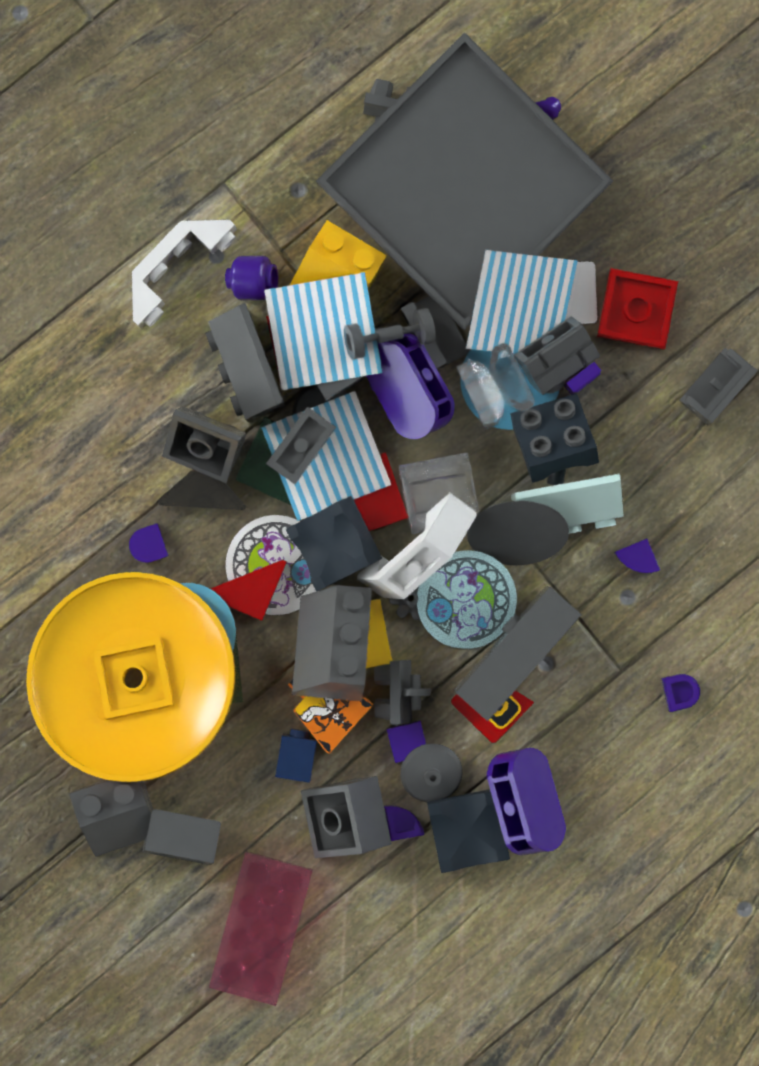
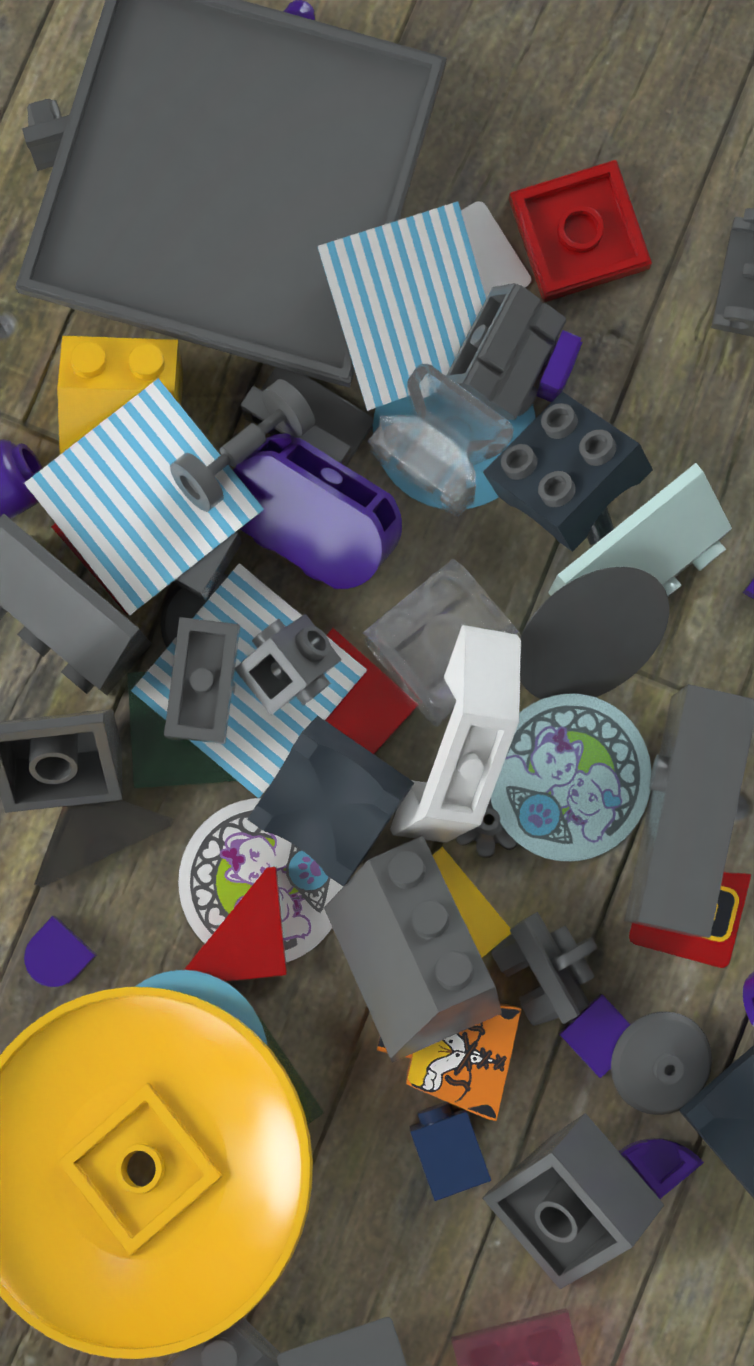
camera: 30 degrees left, 5 degrees down
(350, 461) = (288, 663): none -> dark grey brick

